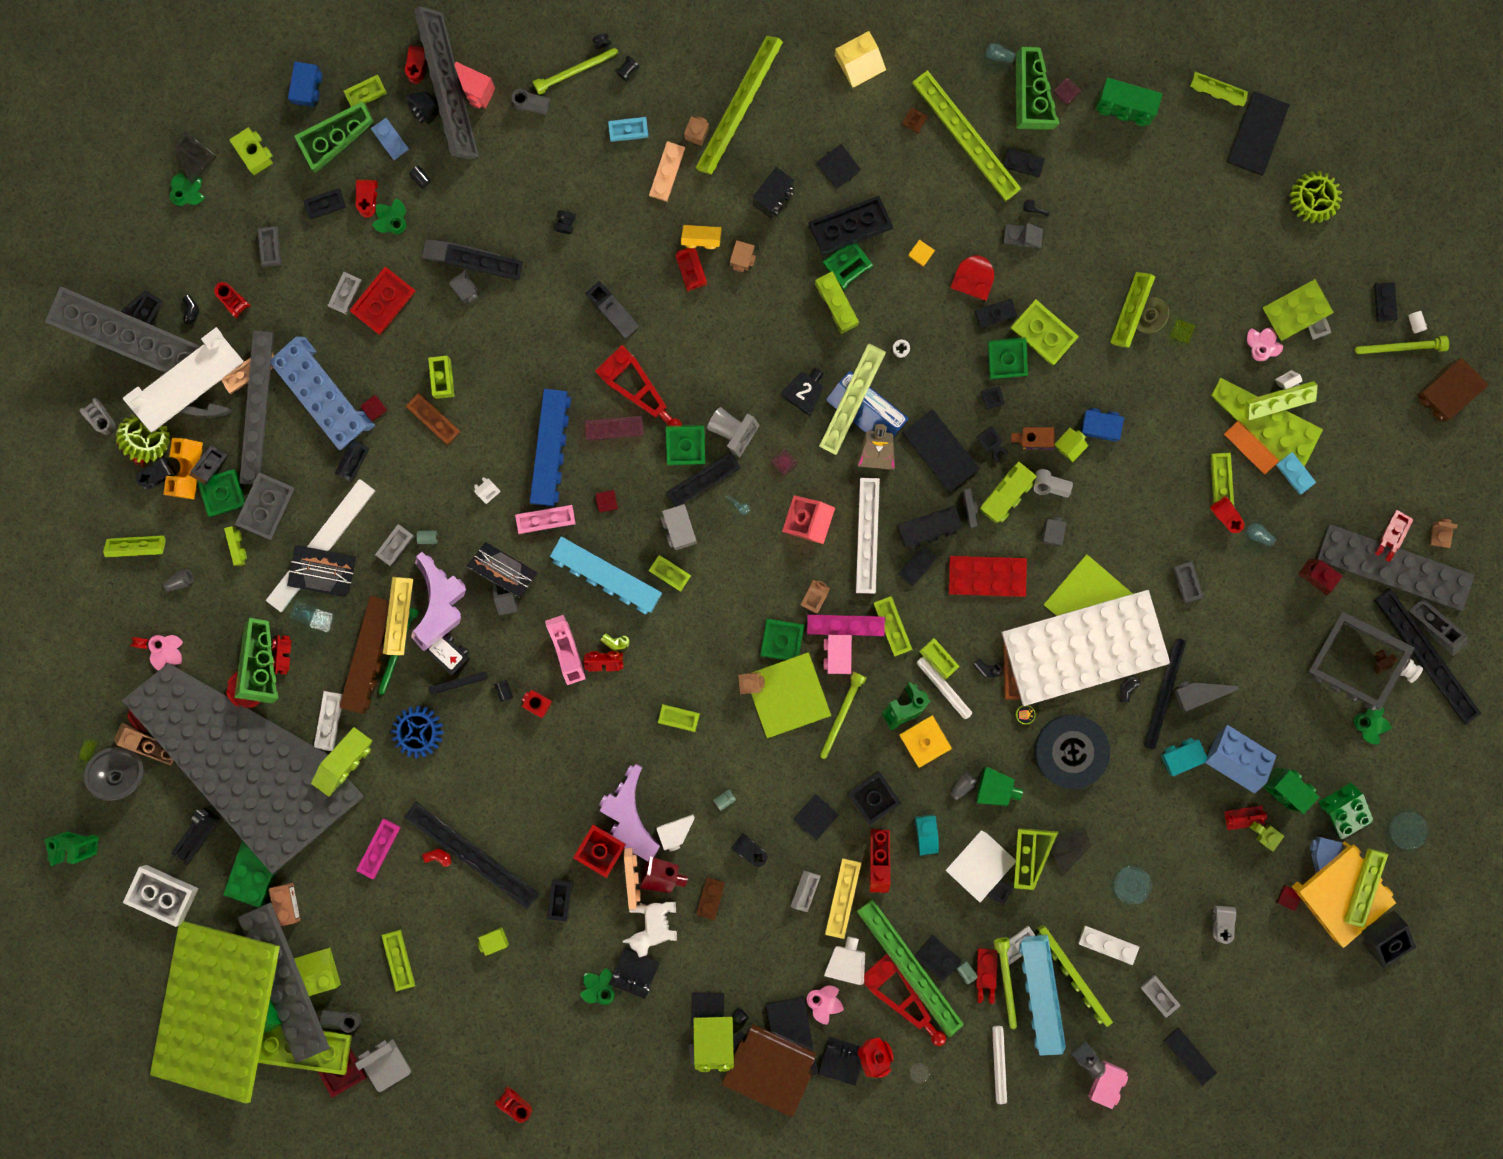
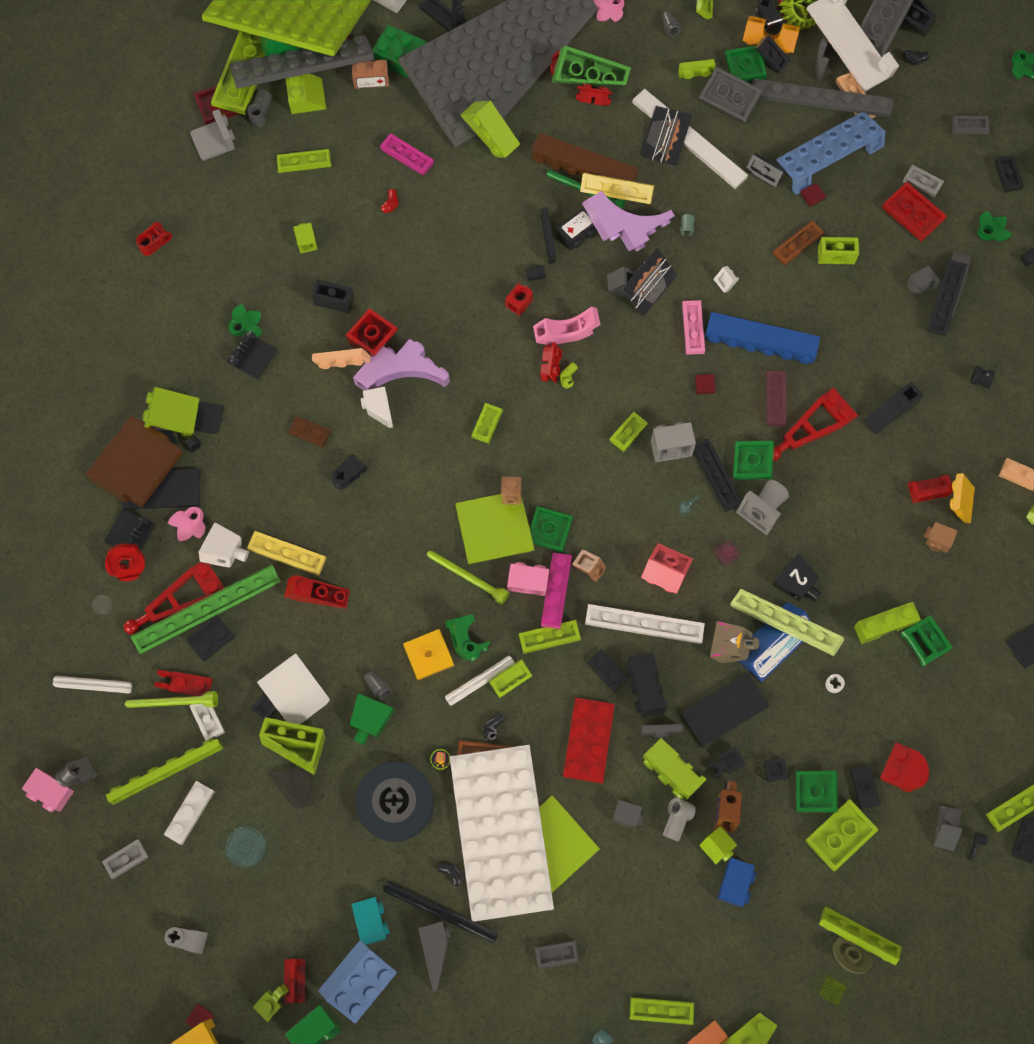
camera: 100 degrees right, 15 degrees down
(233, 301) = (921, 90): red piece -> none
(312, 616) = (624, 123): clear light blue slope -> none
(328, 721) = (528, 127): white tile -> none
(366, 194) = (1015, 208): red piece -> none
(394, 545) = (683, 197): light grey plate -> none
(422, 739) = (505, 204): blue gear -> none
(471, 855) = (387, 231): black tile -> none
(605, 574) = (633, 374): medium azure brick -> none
(656, 927) = (291, 377): white animal -> none
(661, 876) = (338, 386): dark red torso -> none
(724, 799) = (401, 455): sand green piece -> none
(773, 193) = (1005, 573): black brick -> none
(805, 891) = (300, 518): light grey plate -> none
(816, 817) = (370, 539): black piece -> none
(850, 225) = (967, 648): black tile -> none
(873, 797) = (380, 593): black brick -> none
(921, 253) = (934, 718): yellow tile -> none
(927, 834) = (335, 642): teal slope -> none
(966, 972) = (190, 663): sand green piece -> none
(1043, 995) = (151, 733): medium azure brick -> none
(1190, 1056) = (57, 883): black tile -> none
(1227, 513) = (628, 1007): red piece -> none

